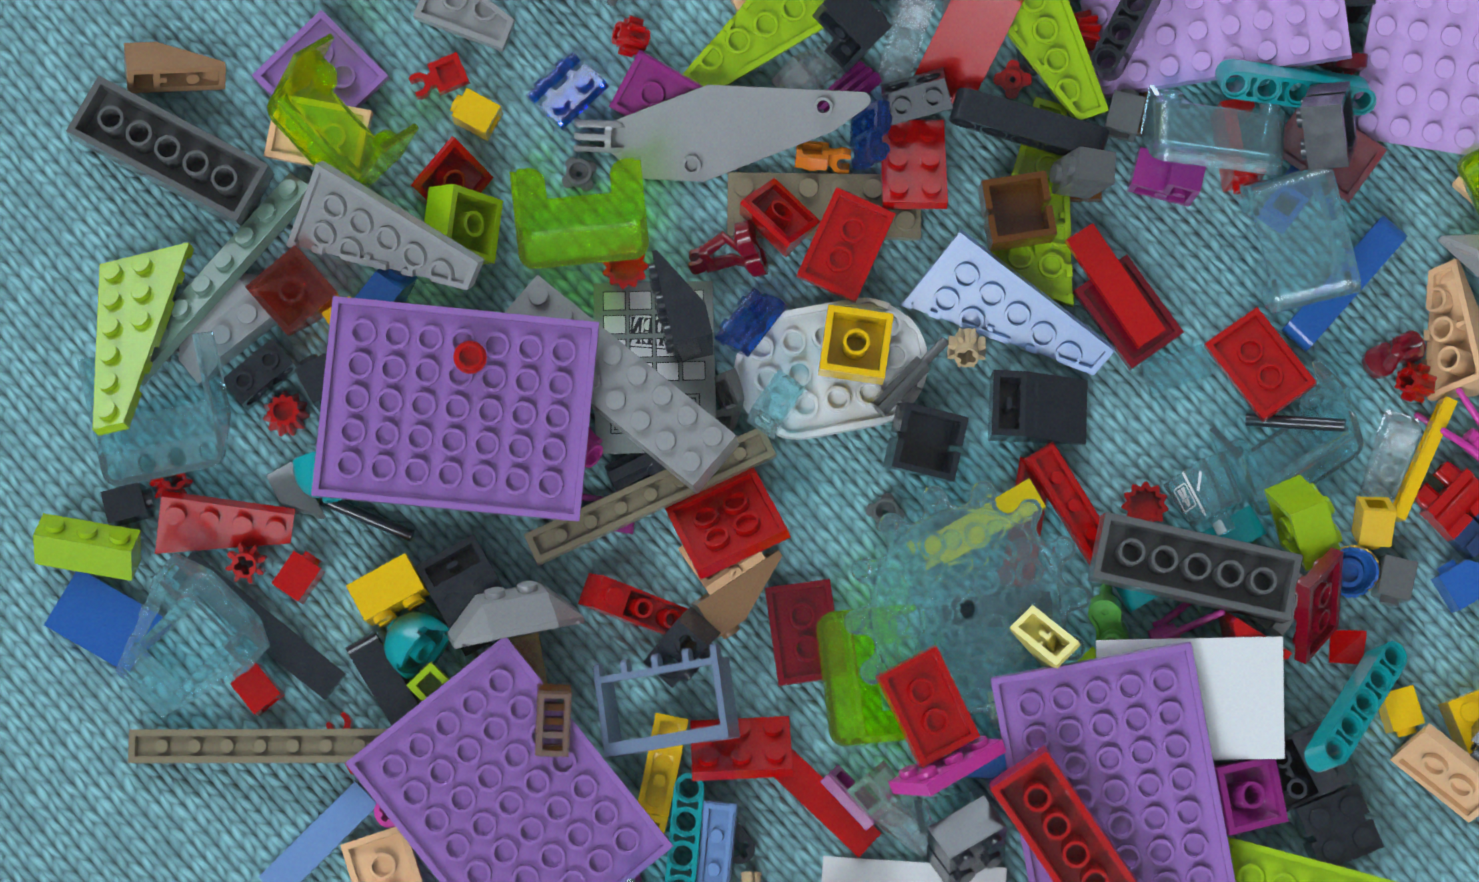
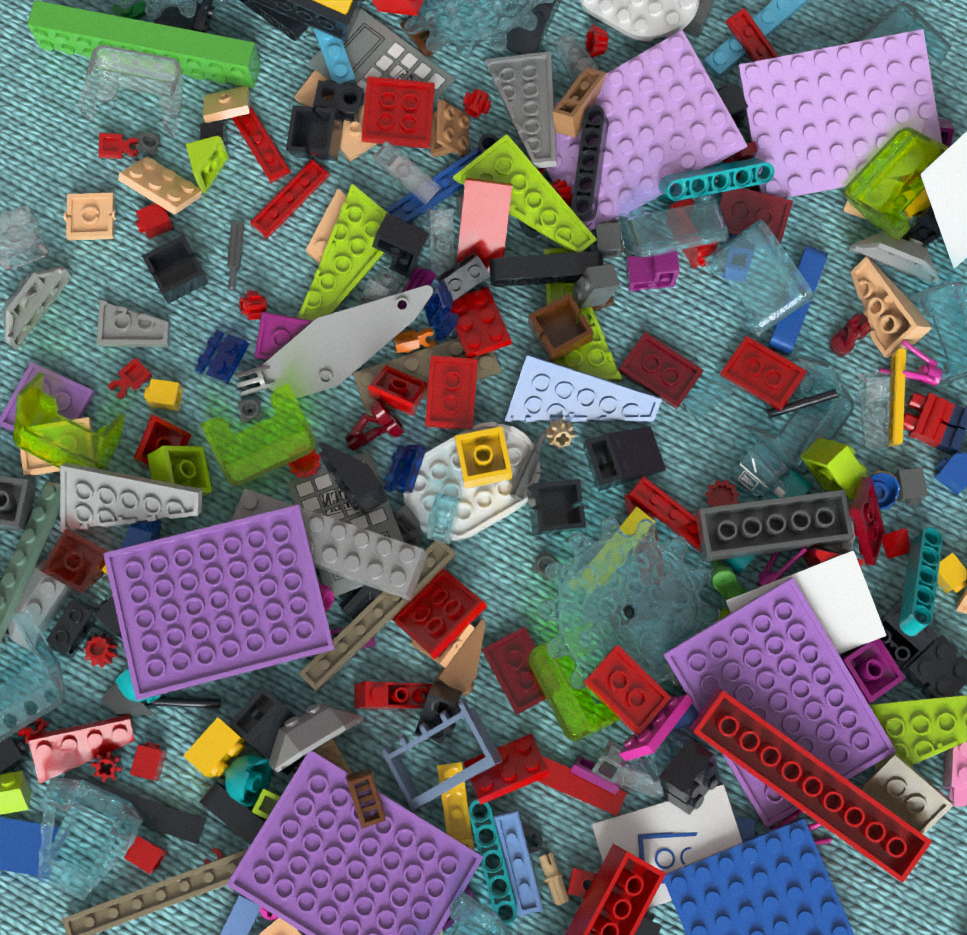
camera: 15 degrees left, 5 degrees down
(470, 357) = (216, 561): red plate -> none
(1012, 88) = (517, 244): red plate -> none
(1044, 638) = (689, 612): light yellow slope -> none
(1115, 285) = (645, 355): red tile -> none
(1327, 125) = (749, 194): black piece -> none
(1373, 522) = (881, 451): yellow brick -> none
(1415, 382) = (872, 348): red gear -> none

